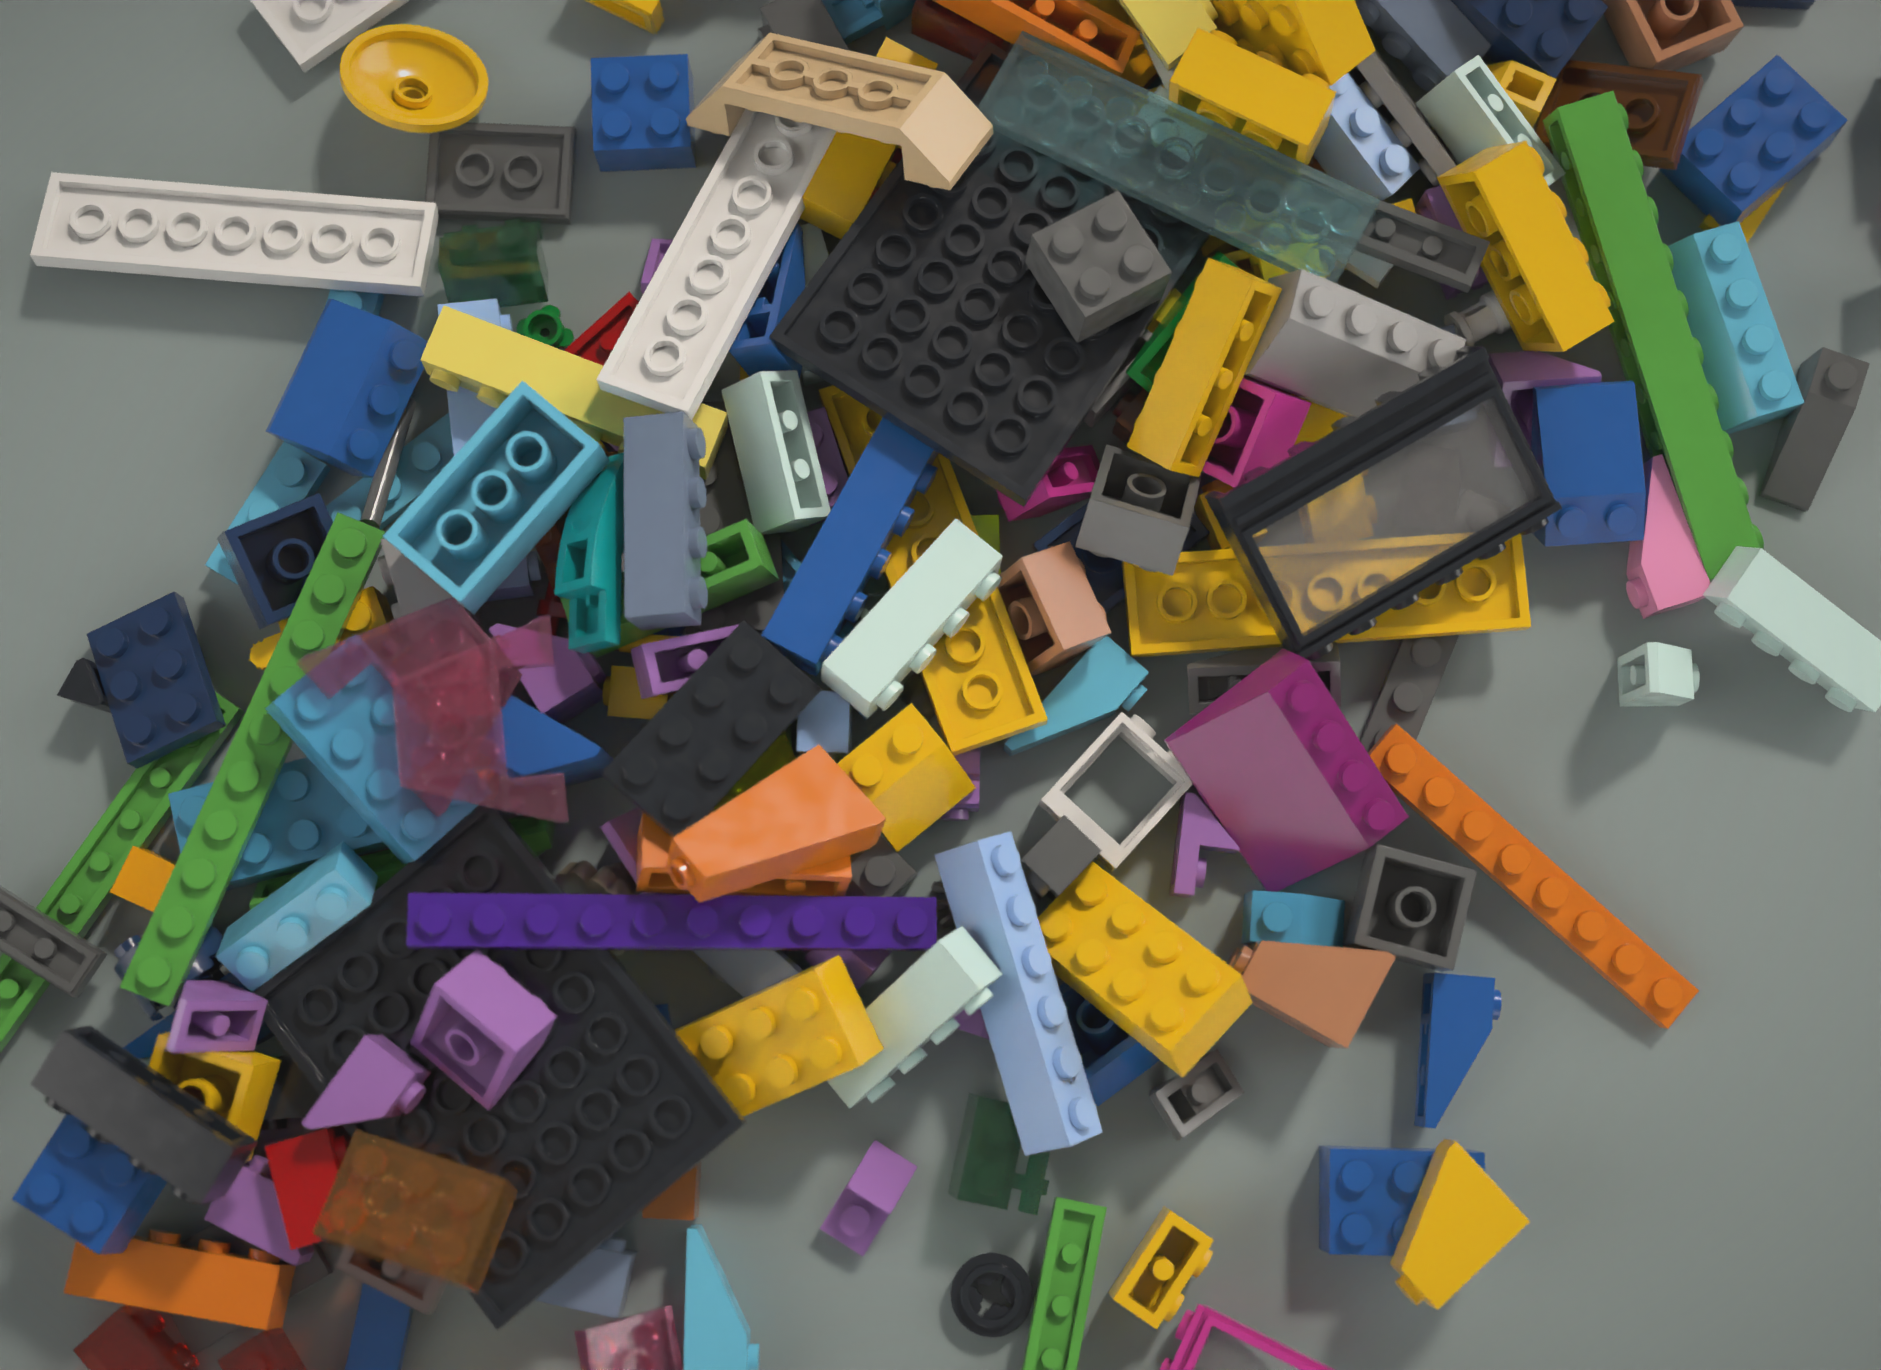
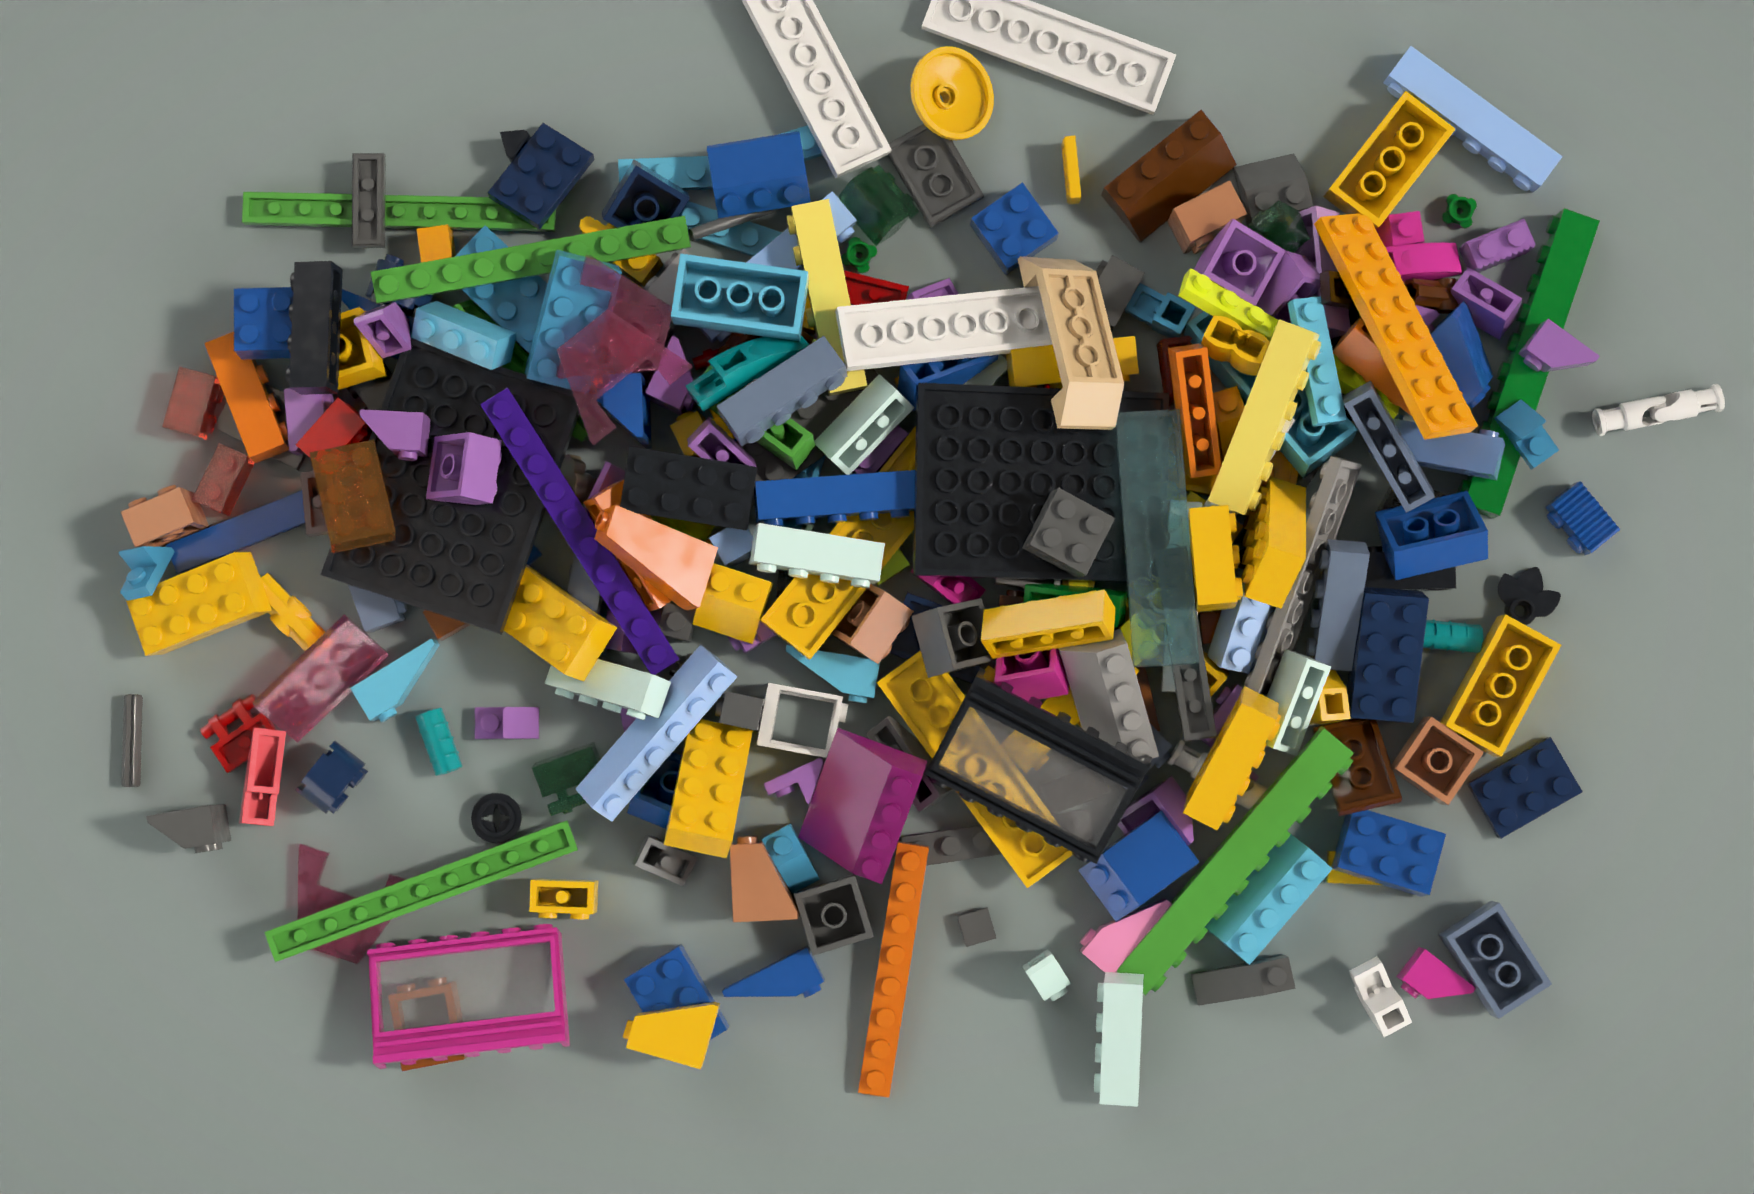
camera: 65 degrees right, 5 degrees up
(836, 1310) = (438, 741): none -> teal axle
(1534, 731) = (976, 927): none -> dark grey tile

